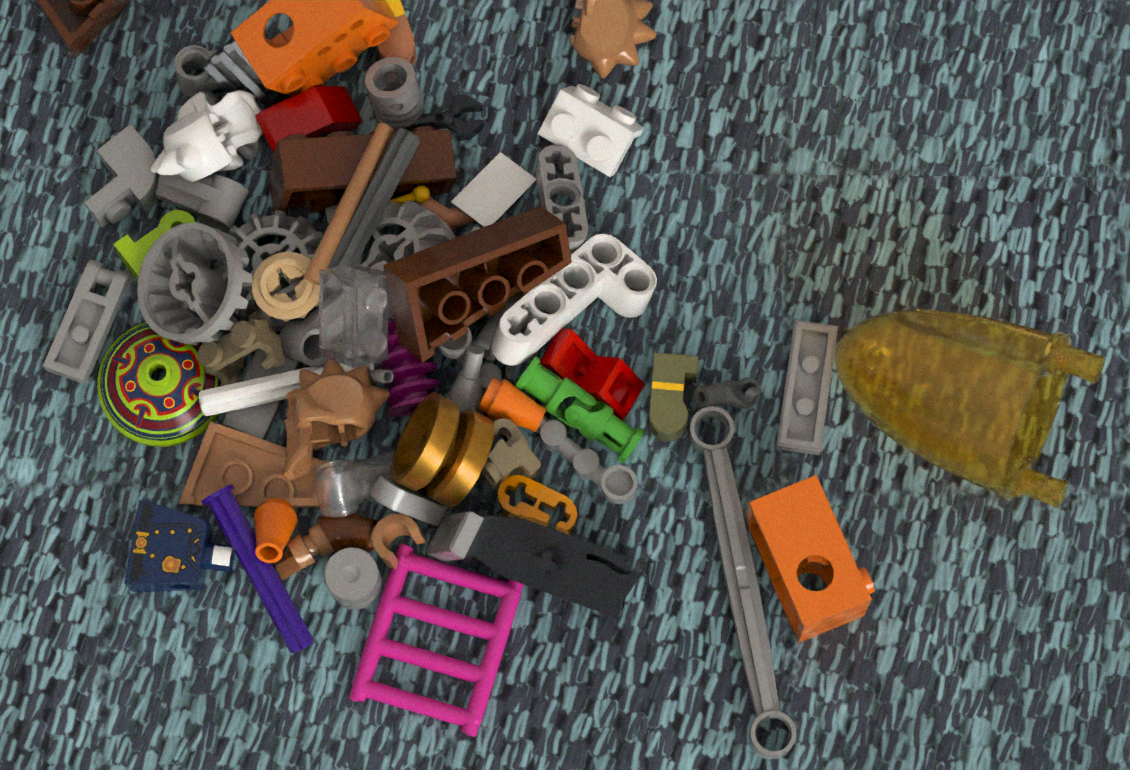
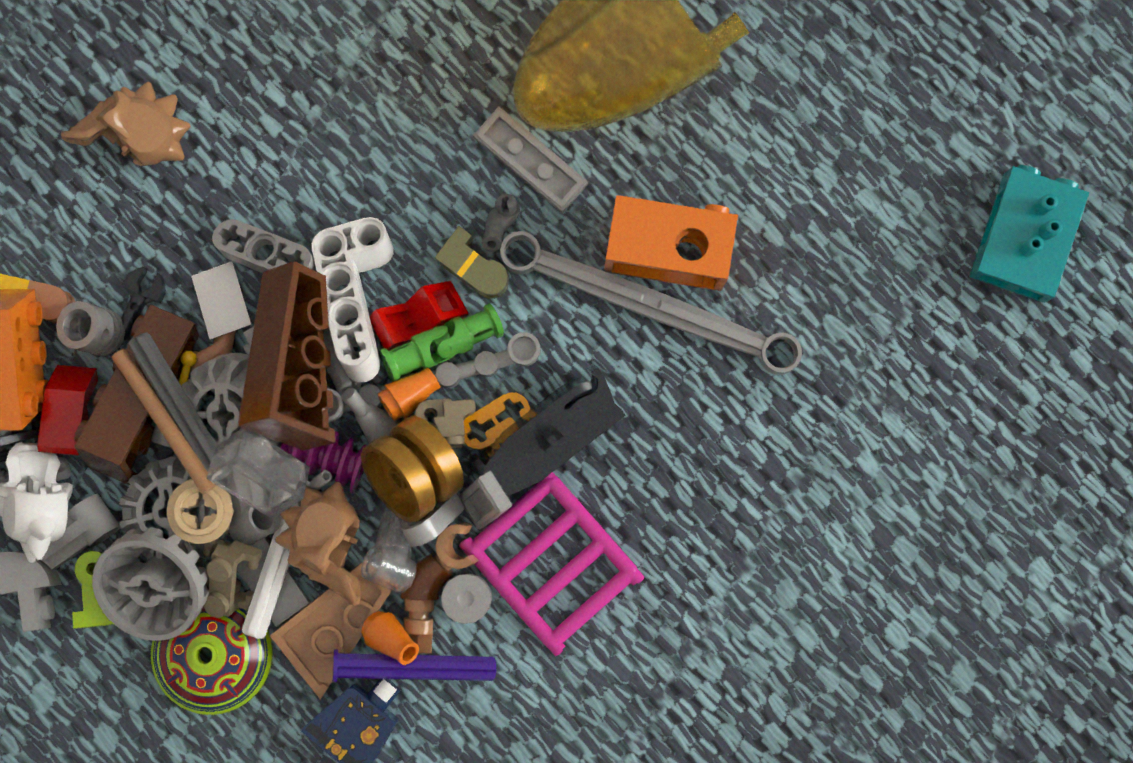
camera: 60 degrees left, 10 degrees up
(87, 322) = (124, 685): light grey plate -> none
(590, 128) = (218, 193): white bracket -> none

